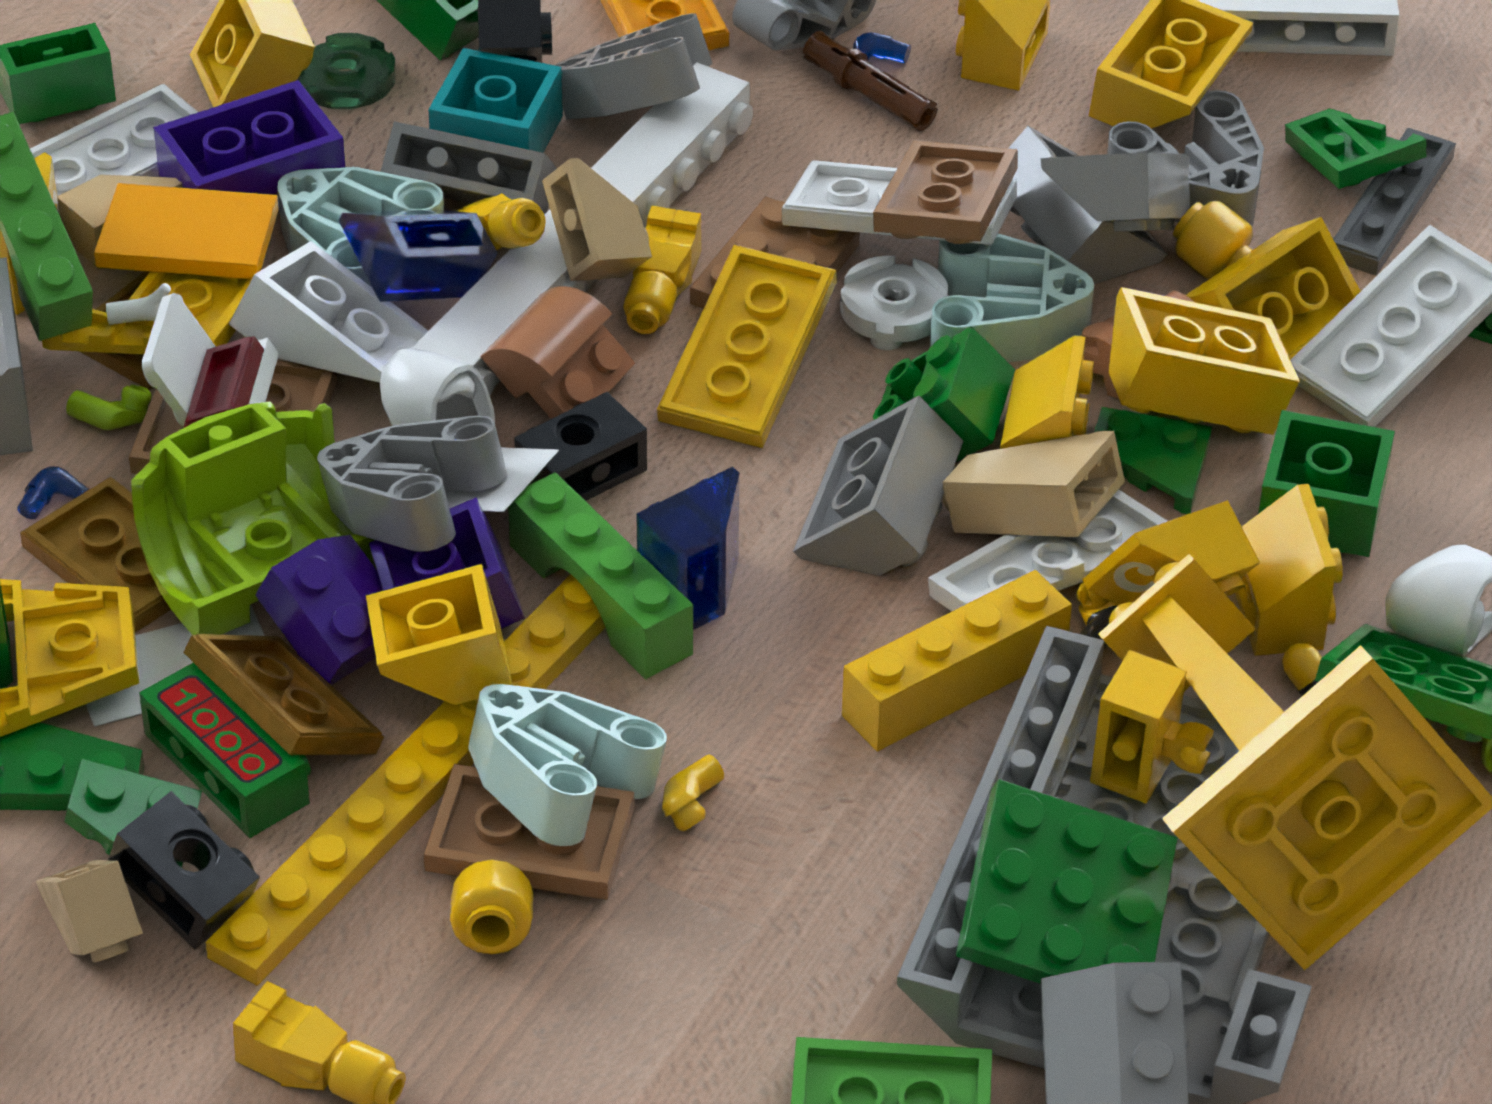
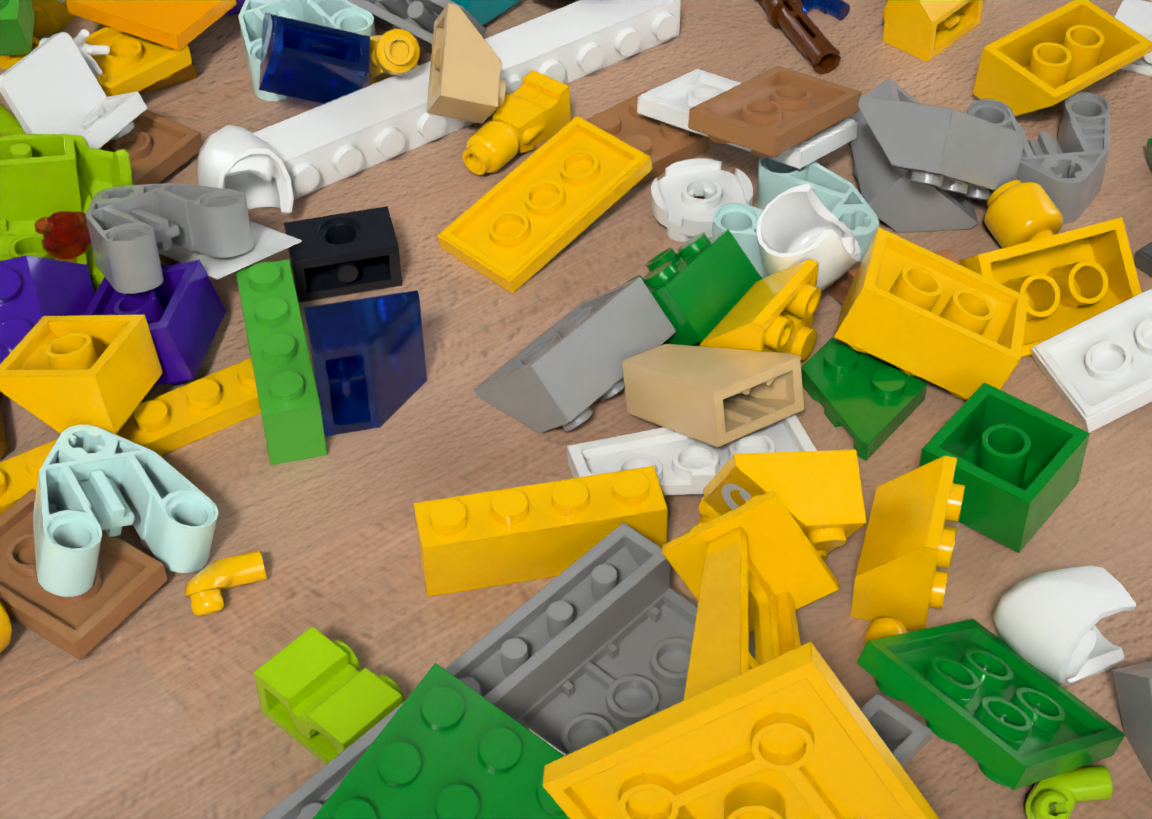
camera: 25 degrees right, 0 degrees up
(225, 378) = (84, 111): dark red tile -> none
(303, 510) = (64, 234): none -> clear red plate
(324, 316) = (205, 84): white slope -> none
(559, 351) = (379, 166): nougat brick -> none
(870, 863) = (322, 696): none -> lime brick
(1045, 314) = (802, 228): none -> white piece
(1142, 729) = (640, 649): yellow brick -> none

